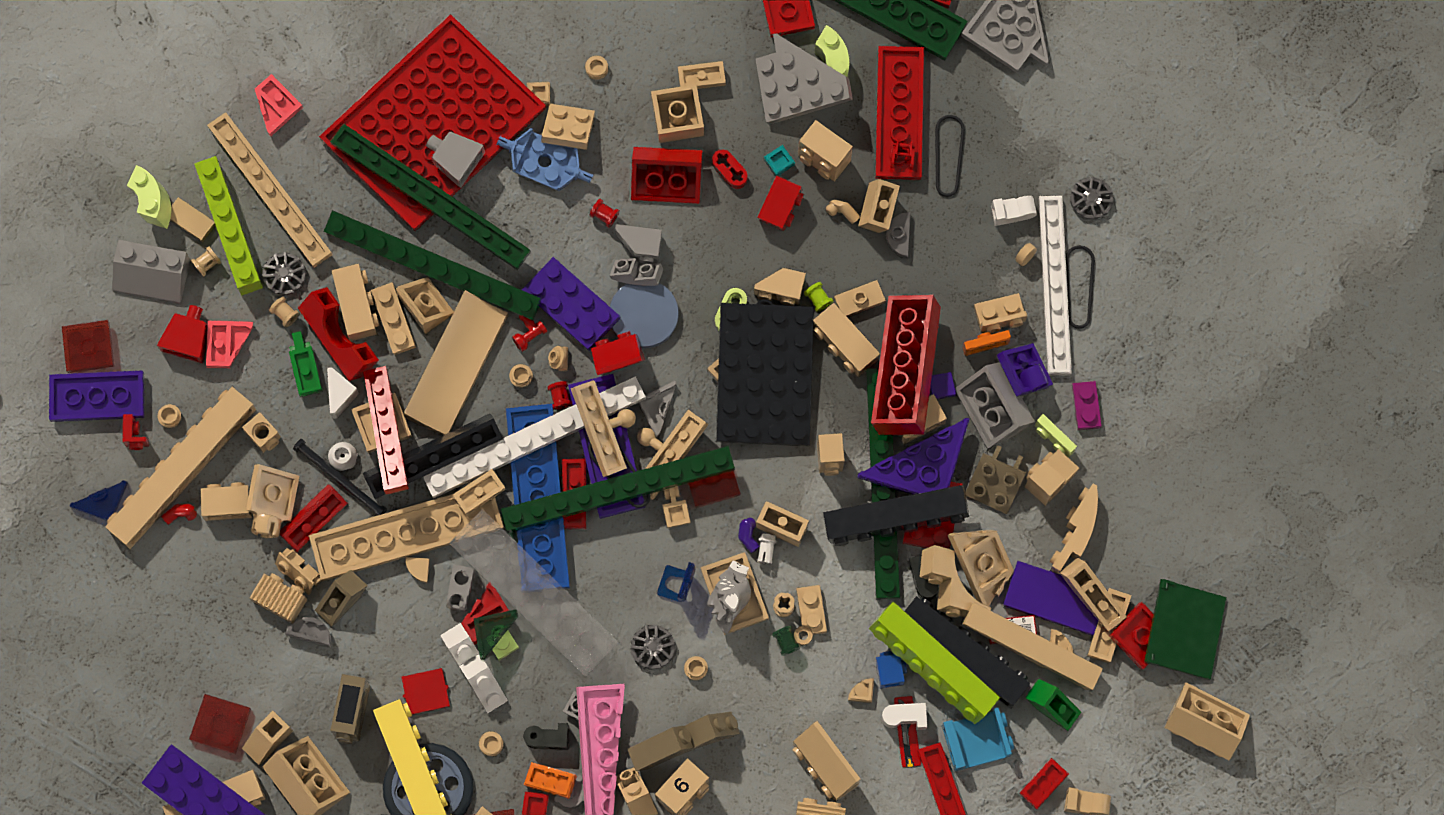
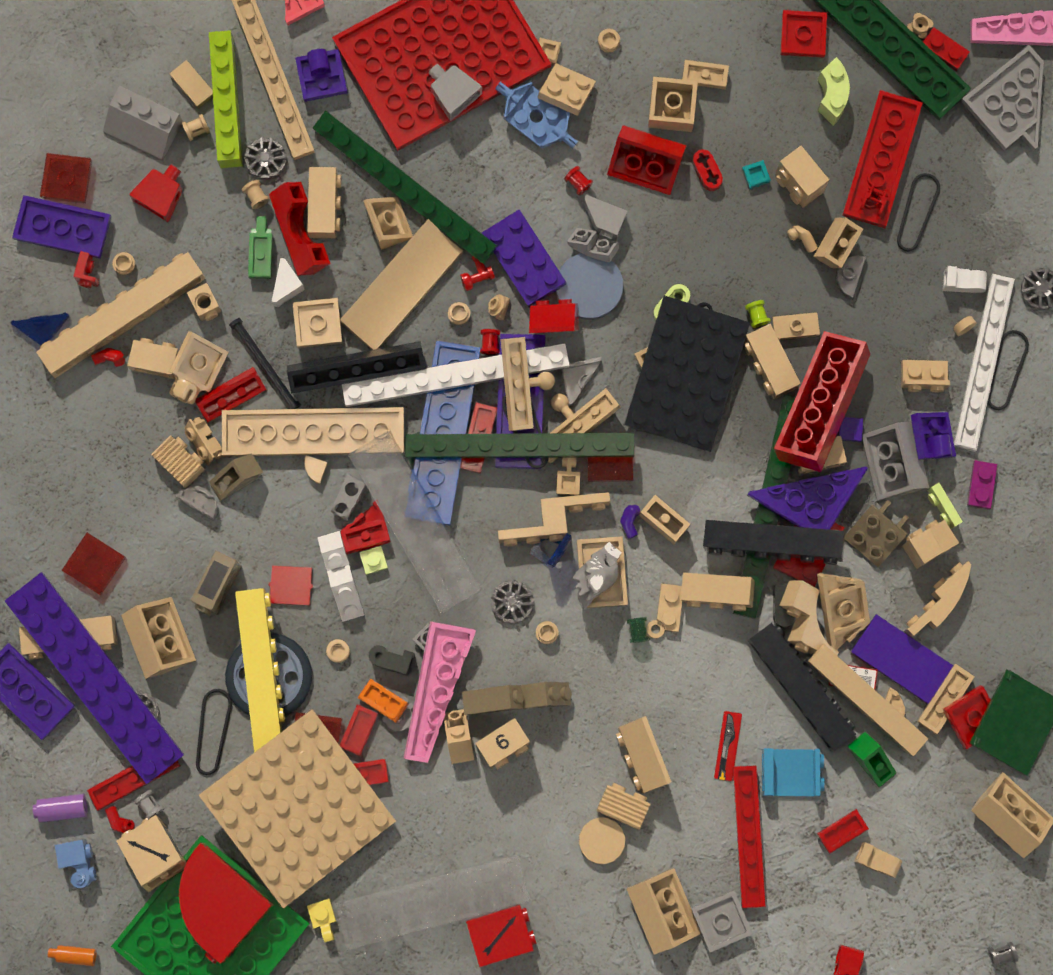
camera: 15 degrees right, 5 degrees up
(152, 198) = (161, 55): yellowish green brick -> none
(225, 342) = (193, 208): coral wing -> none
(266, 737) = (132, 588): tan slope -> none
(318, 176) = (321, 74): none -> dark purple plate
(347, 461) = (273, 351): white plate -> none
(385, 430) = (318, 332): plate -> none
(393, 318) = (355, 227): tan plate -> none
(430, 197) = (420, 122): dark green plate -> none
(479, 492) = (390, 413): tan plate -> none
(491, 629) = (365, 545): clear green tile -> none
(671, 553) = (554, 518): none -> tan bracket
(766, 548) = (643, 538): white pin -> none
(780, 203) = (746, 215): red brick -> none
(782, 286) = (726, 294): tan slope -> none
(784, 597) = (642, 602): tan bush -> none
(798, 83) = (794, 105): light grey wing -> none
(830, 454) = (728, 466): tan brick -> none
(854, 580) = (717, 591): none -> tan brick
(862, 691) = (696, 697): tan tile -> none
(890, 670) = (728, 684): blue brick -> none
(905, 714) = (732, 730): white leg -> none
(934, 663) = (770, 690): lime brick -> none
(986, 342) = (904, 399): orange plate -> none
(1093, 593) = (938, 665): tan slope -> none

